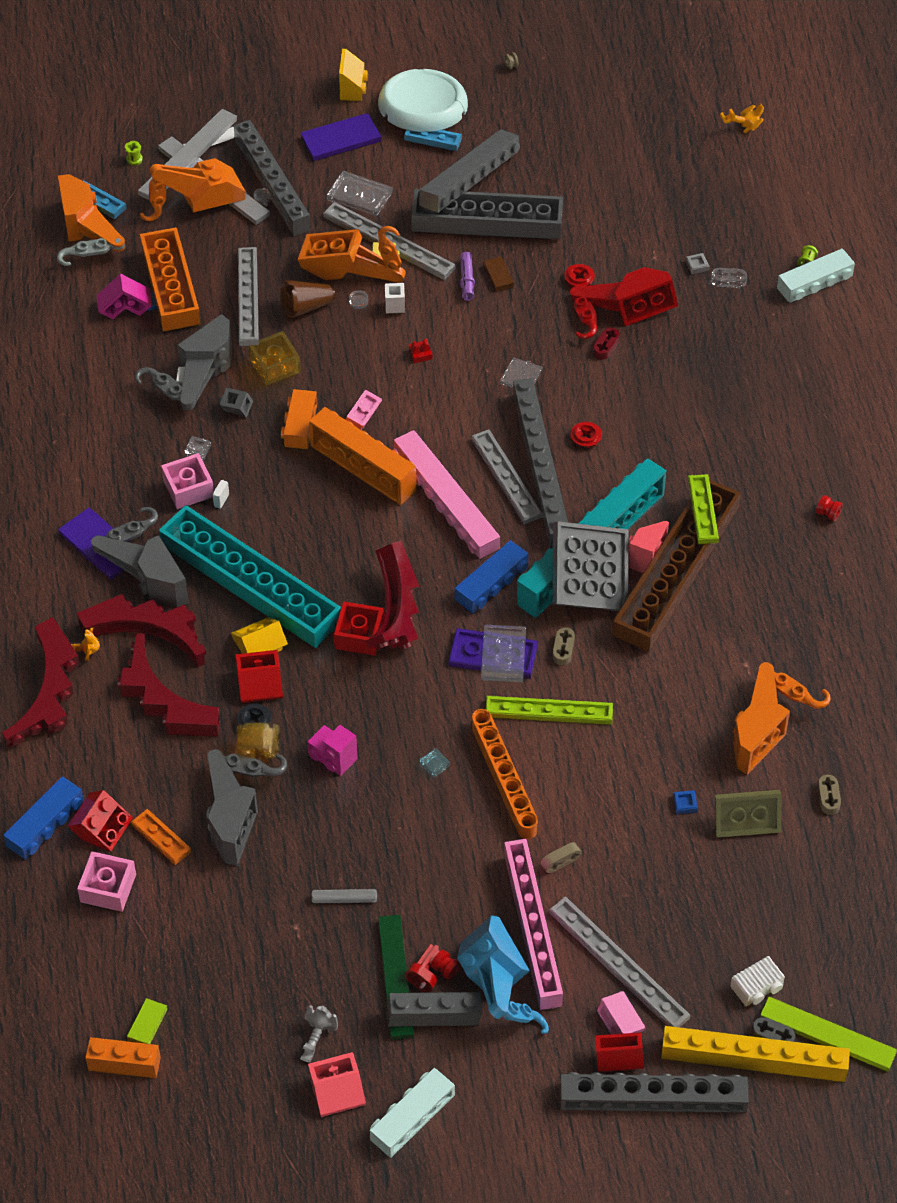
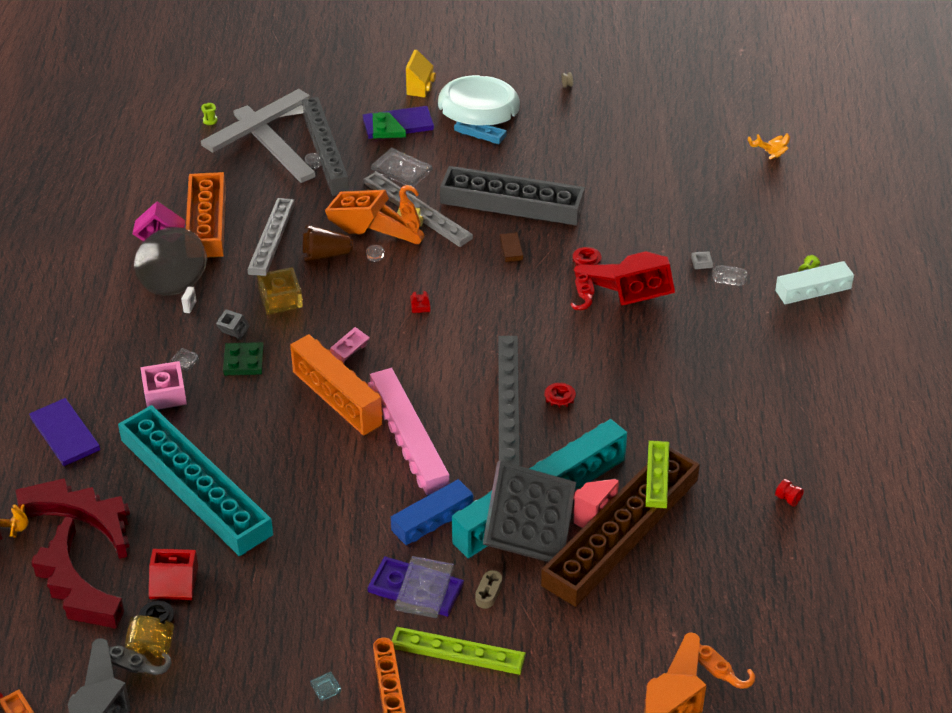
camera: 10 degrees right, 10 degrees down
(85, 220) = (144, 158): orange slope -> none
(107, 203) = (166, 146): dark azure plate -> none
(149, 337) = (170, 261): none -> clear smoke dish
(149, 563) = (97, 452): dark grey slope -> none
(203, 356) = (212, 279): dark grey slope -> none
(204, 185) = (260, 142): orange slope -> none
(220, 494) = (192, 402): white tile -> none
(257, 438) = (243, 358): none -> dark green plate
(260, 636) = (187, 537): yellow slope -> none
(301, 410) = (279, 355): orange brick -> none
(331, 145) = (386, 126): none -> green wing
(334, 748) = (225, 656): dark pink brick -> none
(356, 626) = (285, 542): red brick -> none
(395, 298) = (407, 254): white brick -> none
(399, 603) = (331, 527): dark red arch -> none
(467, 281) = (479, 249): medium lavender pin -> none
(469, 170) = (502, 156): dark grey brick -> none
(506, 476) = (473, 423): light grey tile -> none
(519, 370) = (510, 328): clear piece -> none
(604, 342) = (602, 319): dark red beam -> none

